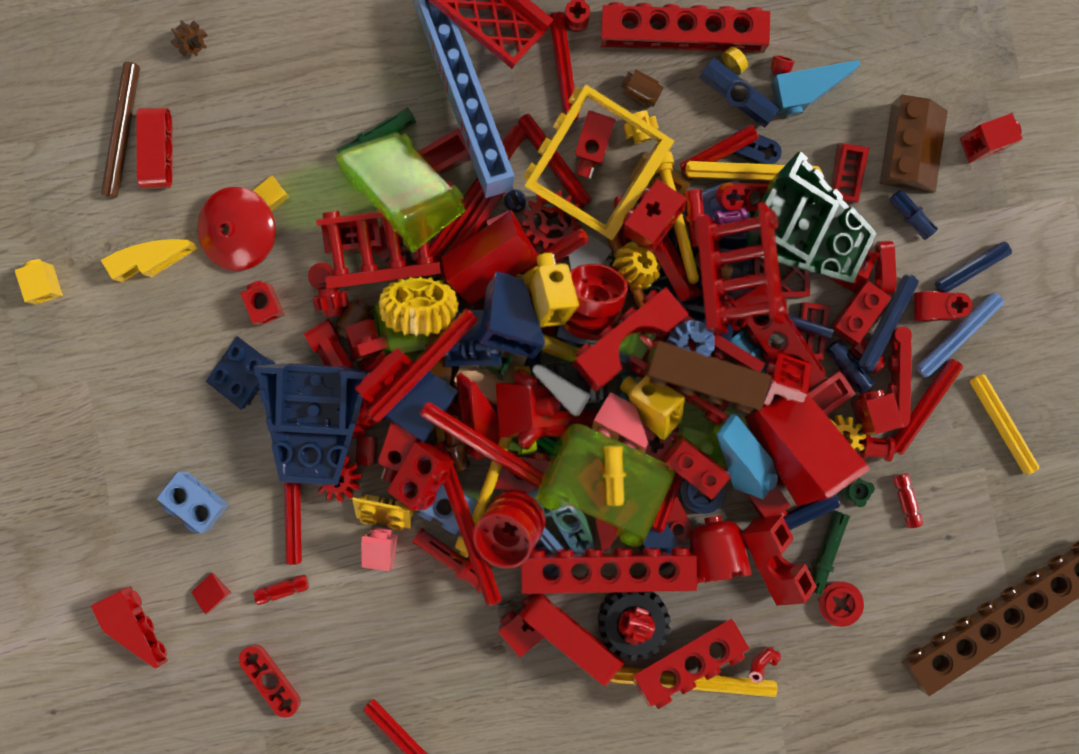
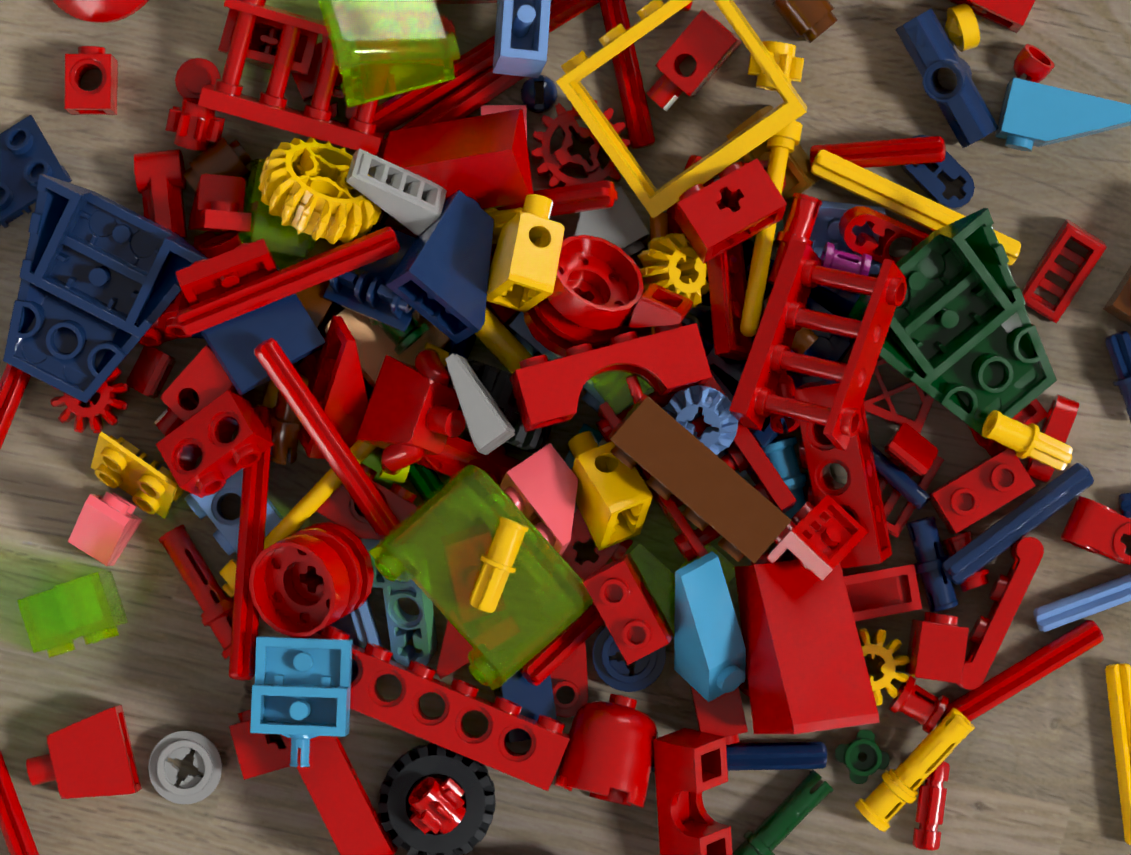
camera: 25 degrees right, 0 degrees up
(384, 603) = (73, 611): none -> clear neon green brick
(427, 683) = (89, 758): none -> red torso
(461, 287) = (397, 191): none -> light grey slope
(474, 673) = (165, 775): none -> light grey gear
(532, 596) = (301, 690): none -> dark azure plate
(640, 288) = (659, 308): none -> red slope
(811, 308) = (911, 450): none -> red slope
(876, 273) = (1027, 440): none -> yellow axle
(887, 497) = (901, 784): none -> yellow pin

